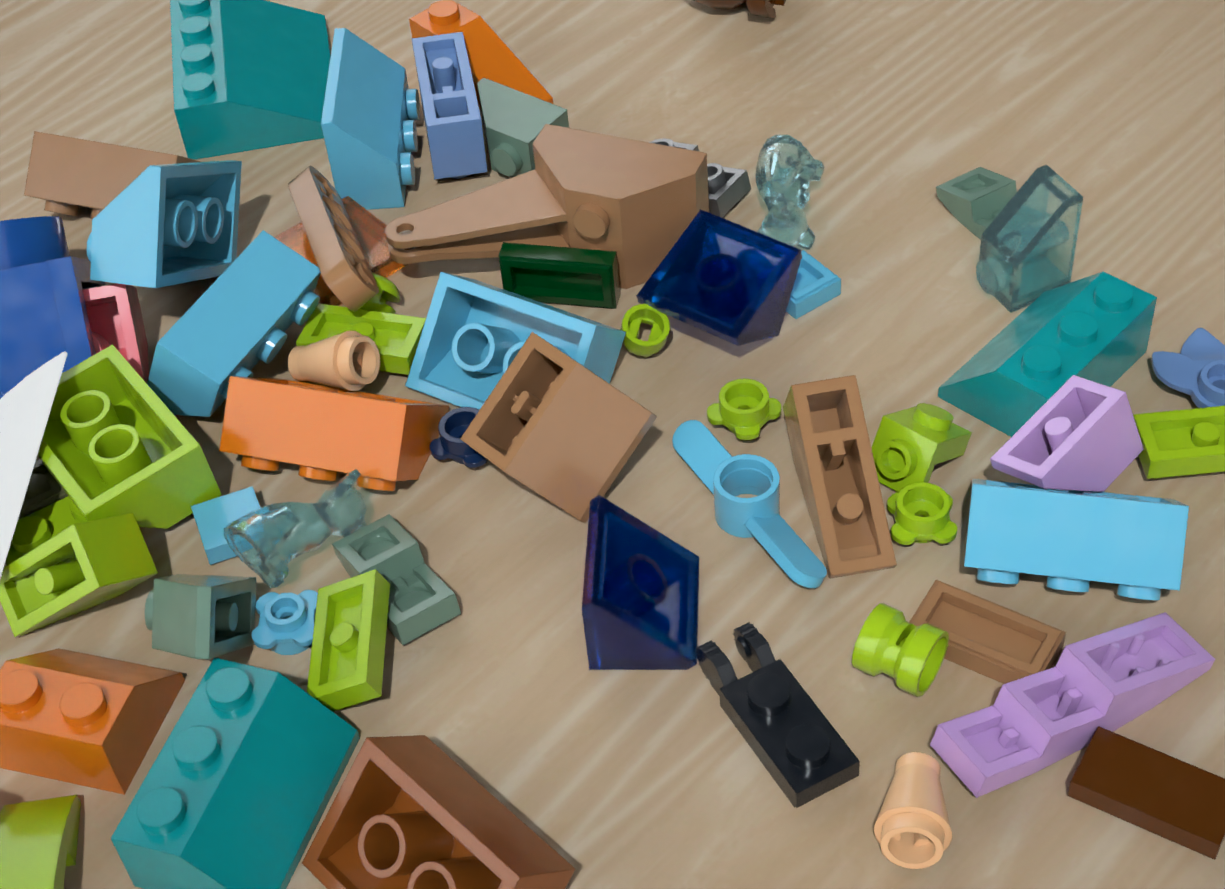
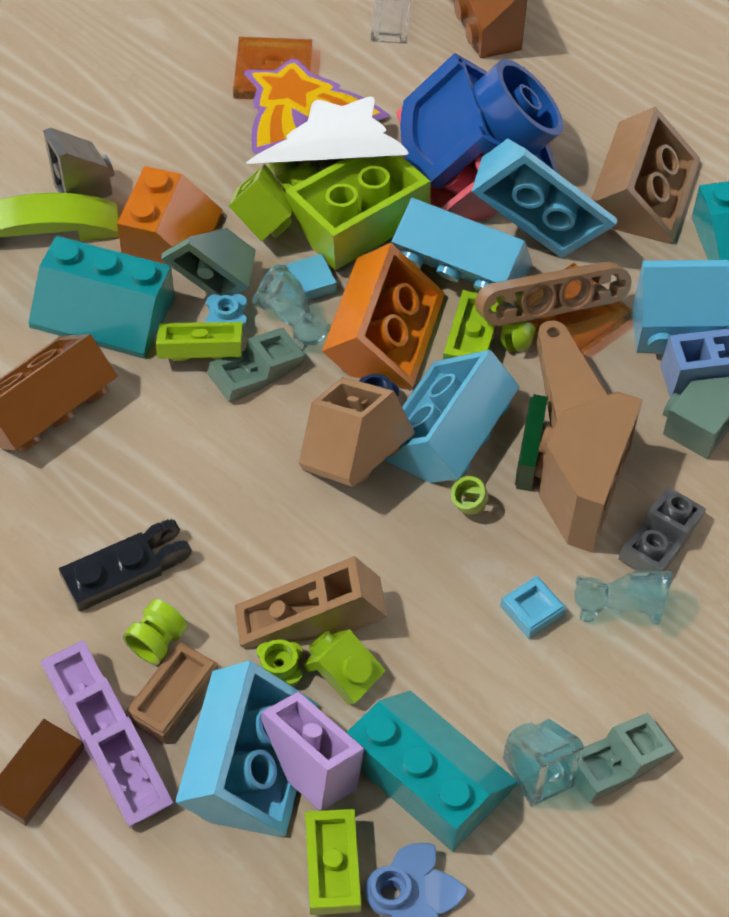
camera: 85 degrees right, 10 degrees up
(338, 361) = (436, 314): light nougat cone -> none
(637, 594) = (219, 483): clear blue slope -> none
(725, 280) = (499, 536): clear blue slope -> none
(744, 408) = (391, 548): lime plate -> none
(747, 517) = (284, 568): medium azure piece -> none
(914, 816) = (34, 628): light nougat cone -> none

